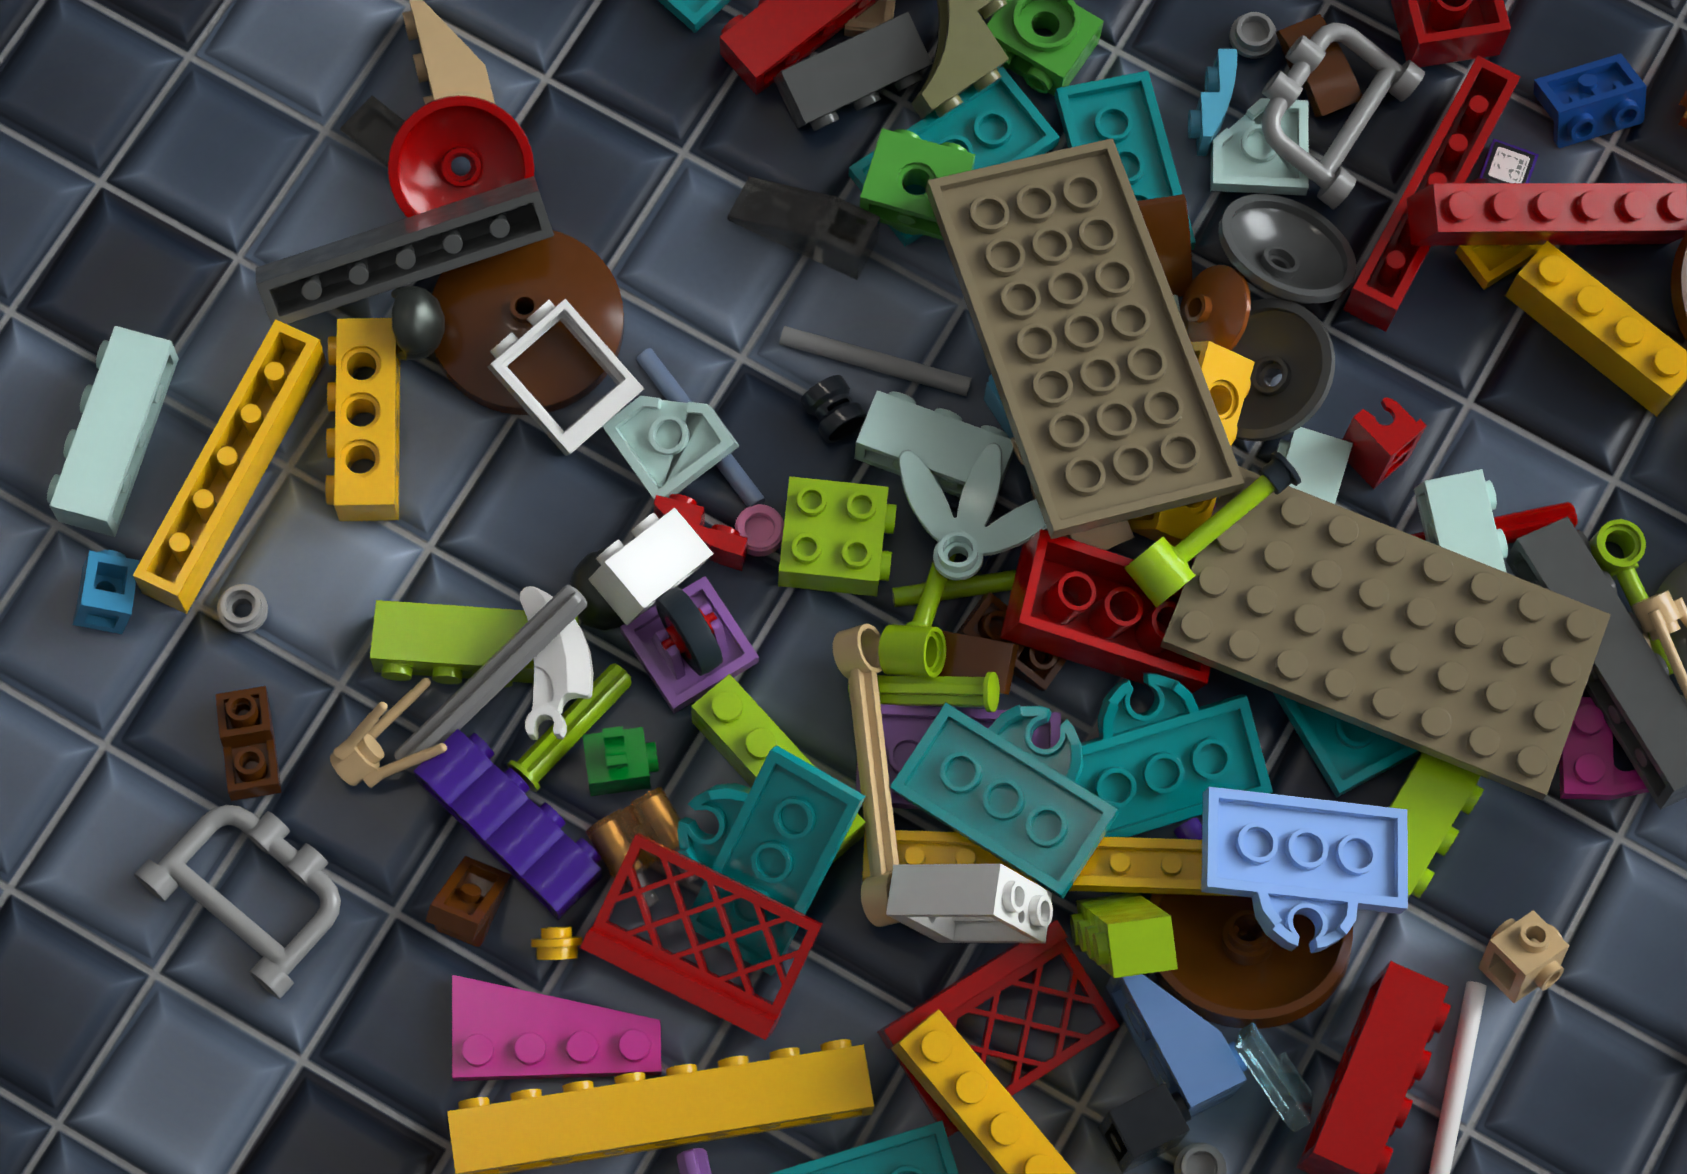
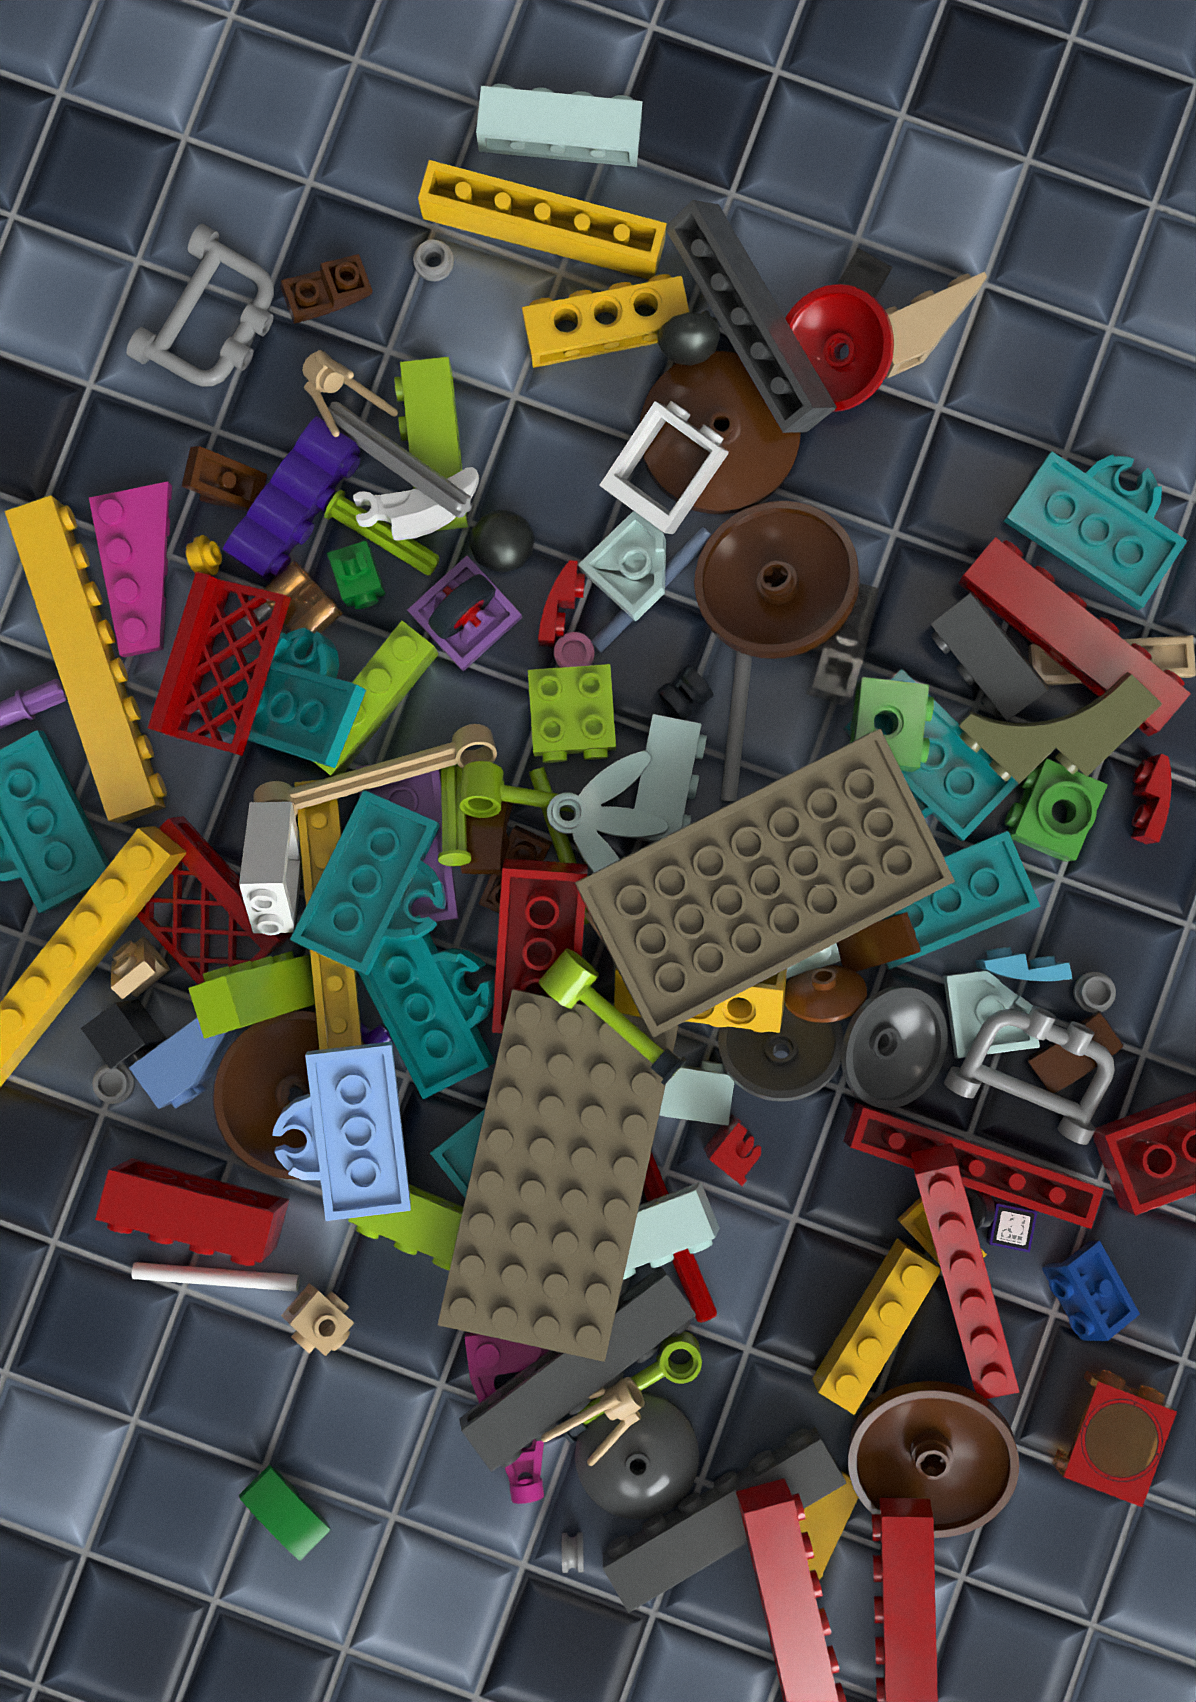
camera: 85 degrees right, 15 degrees up
(110, 608) = (413, 137): dark azure brick -> none
(649, 565) = (514, 566): white brick -> none
(686, 256) = (770, 548): none -> reddish brown dish
(1064, 1103) = (136, 968): none -> tan plate
(1276, 1077) = (175, 1134): clear light blue tile -> none

